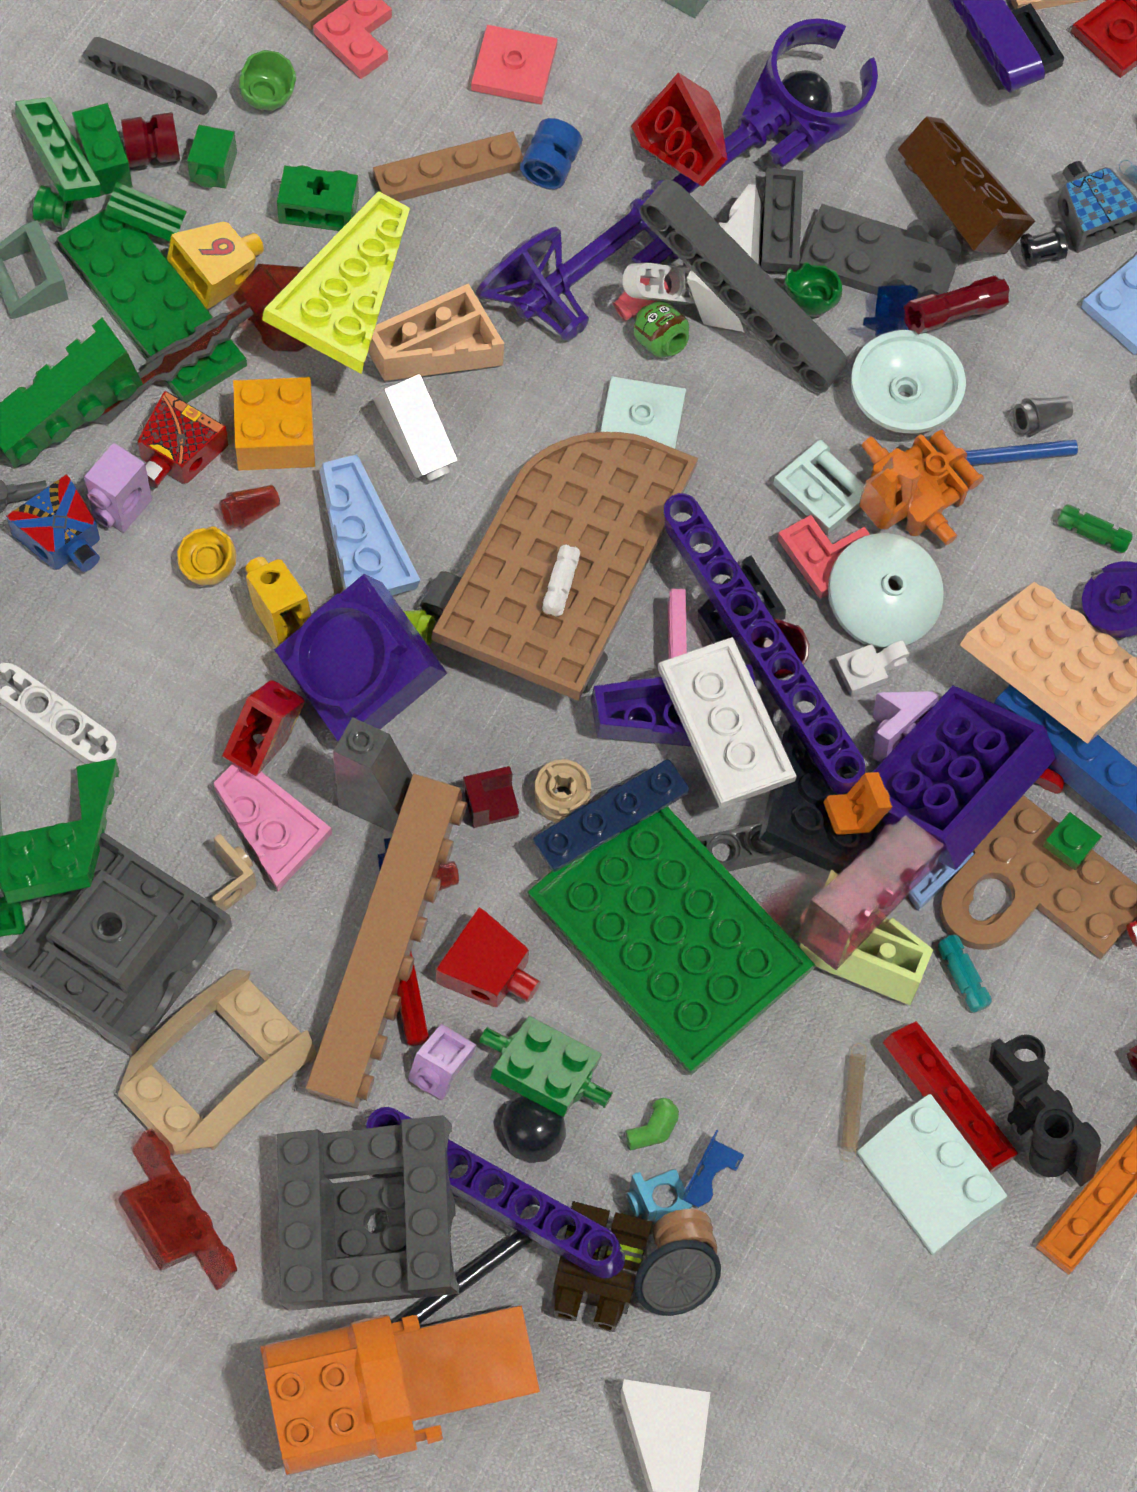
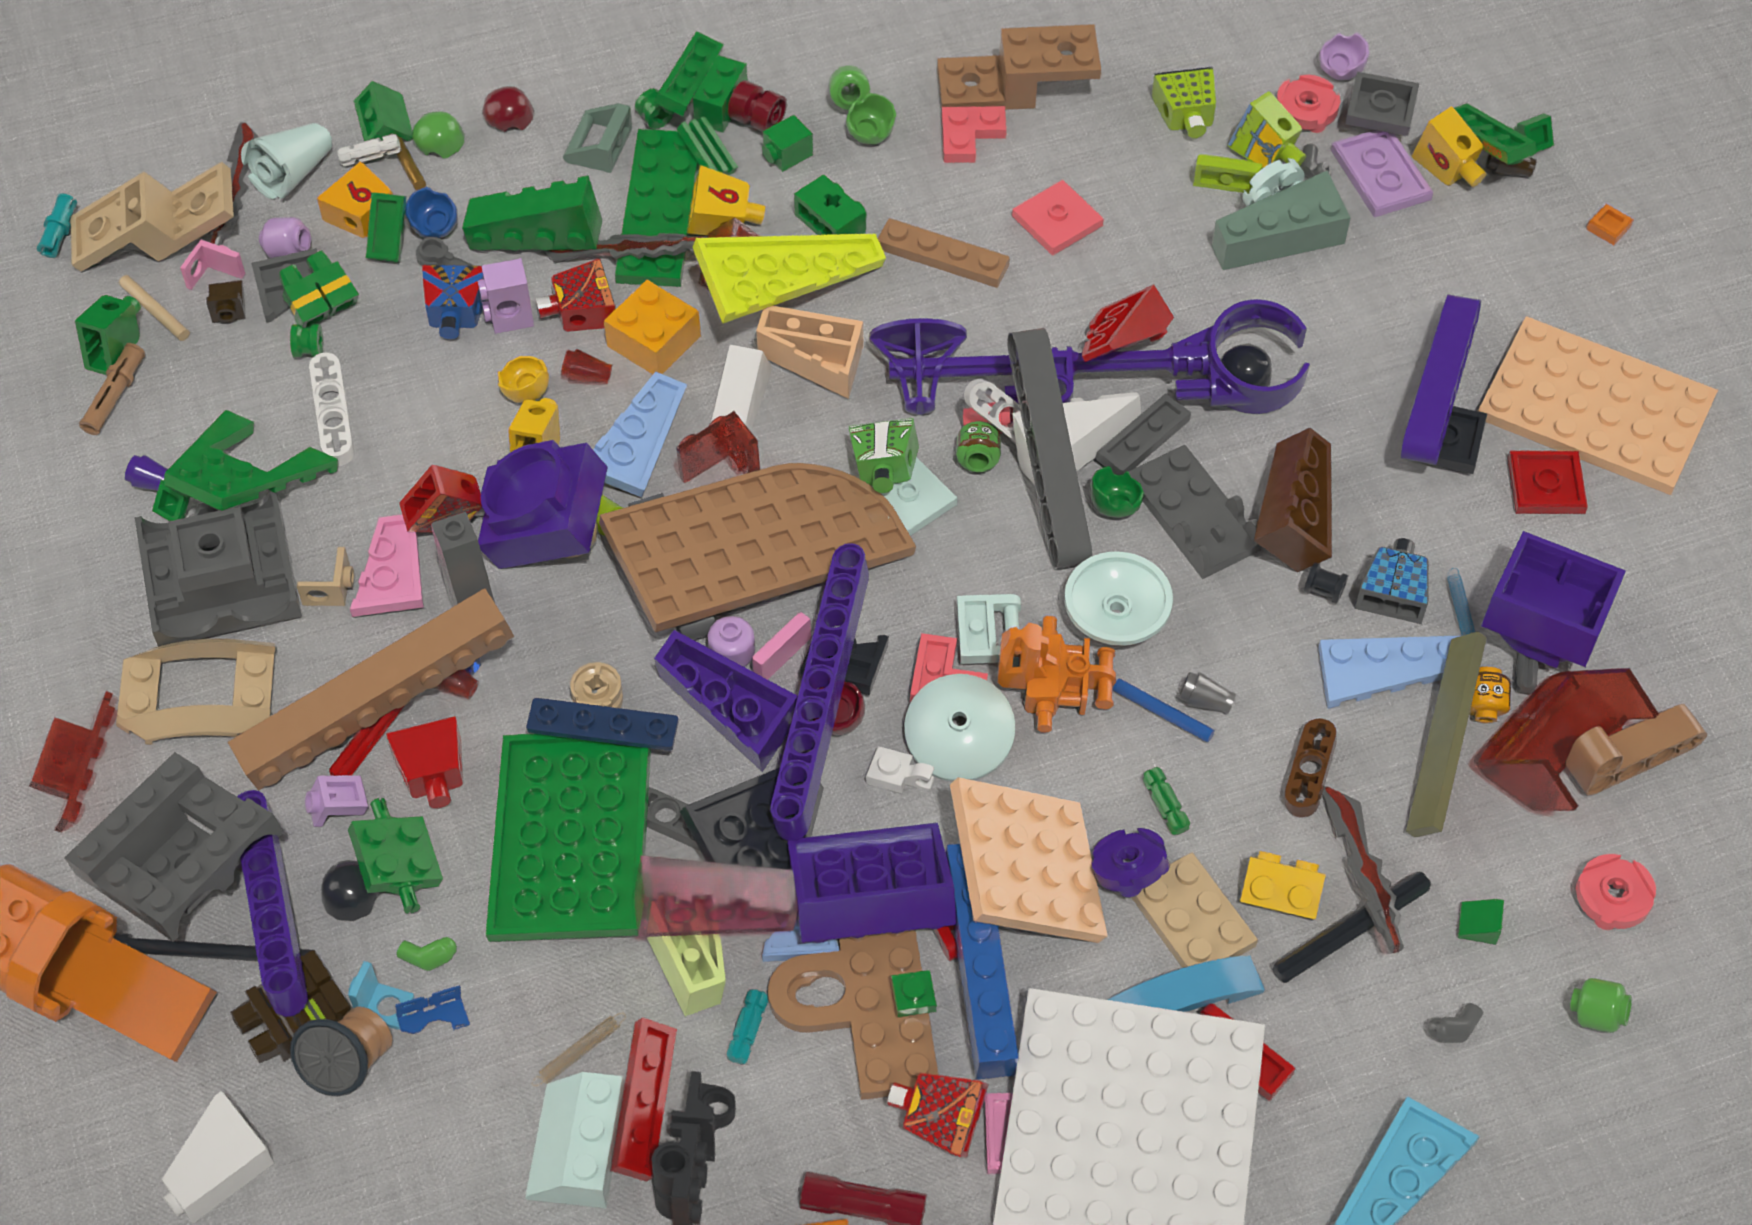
camera: 45 degrees right, 10 degrees down
(150, 75) = (801, 71): dark grey beam -> none
(216, 62) = (844, 77): none -> bright green head
(468, 476) = (722, 439): none -> clear red bracket
(490, 797) = (545, 658): dark red panel -> none
(551, 153) = (1016, 285): blue wheel -> none
(561, 580) = (721, 546): white axle -> none
(594, 394) = (885, 452): none -> bright green torso
(635, 657) = (732, 639): none -> lavender head
(726, 722) = (736, 718): white tile -> none
(859, 808) = (772, 847): orange bracket -> none
(890, 309) = (1162, 547): clear blue bracket -> none
(897, 717) = (881, 813): lavender slope -> none
(935, 310) = (1233, 580): dark red axle -> none

